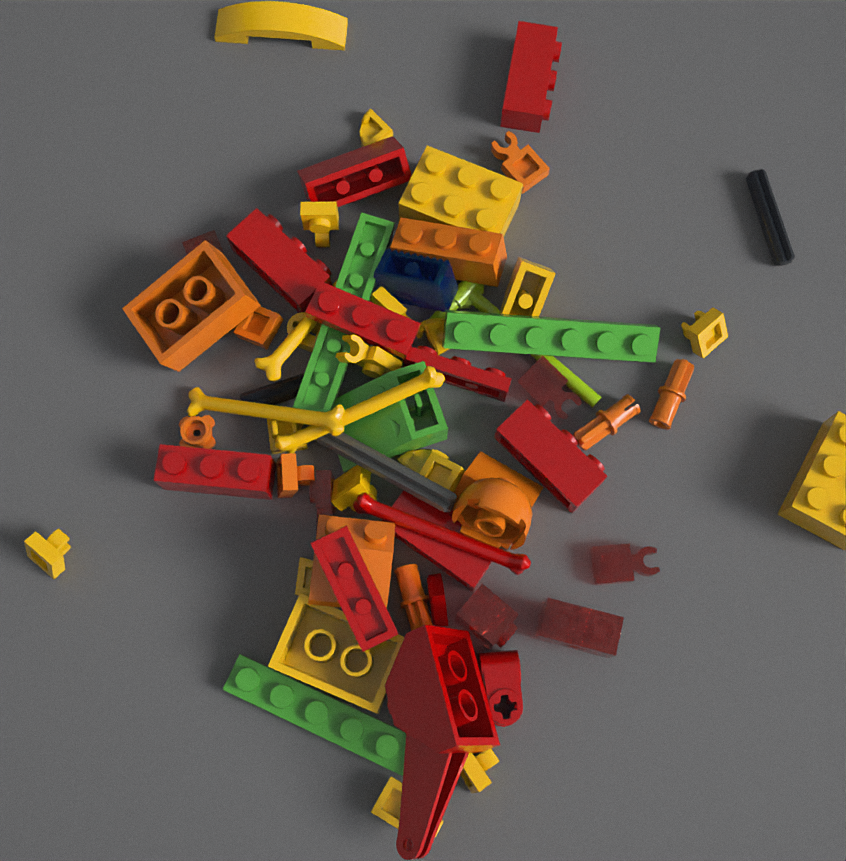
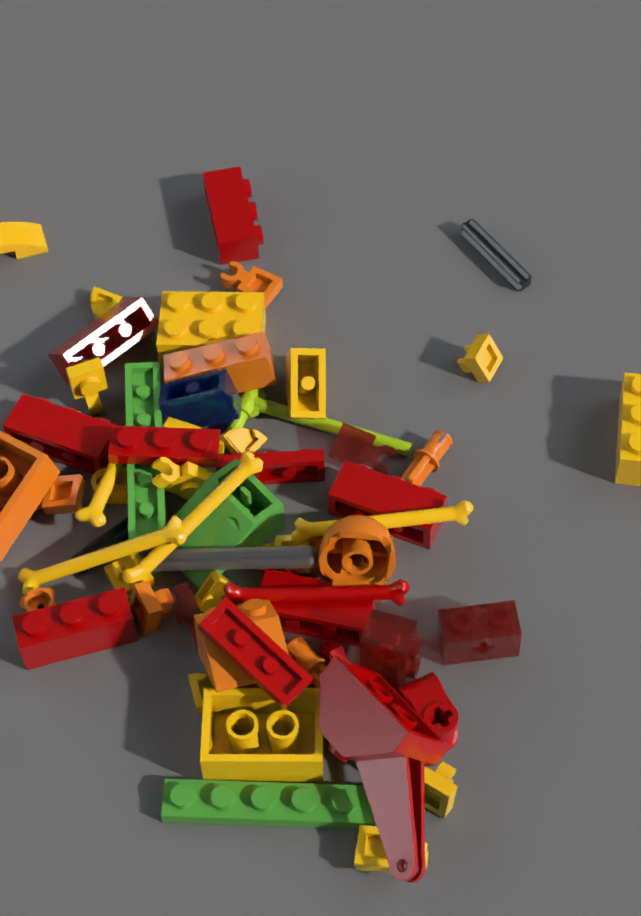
camera: 20 degrees left, 20 degrees down
(550, 336) = (342, 405): bright green plate -> none
(609, 501) = (456, 513): none -> yellow piece
(616, 564) = (492, 574): clear red plate -> none
(672, 394) = (474, 419): orange axle -> none

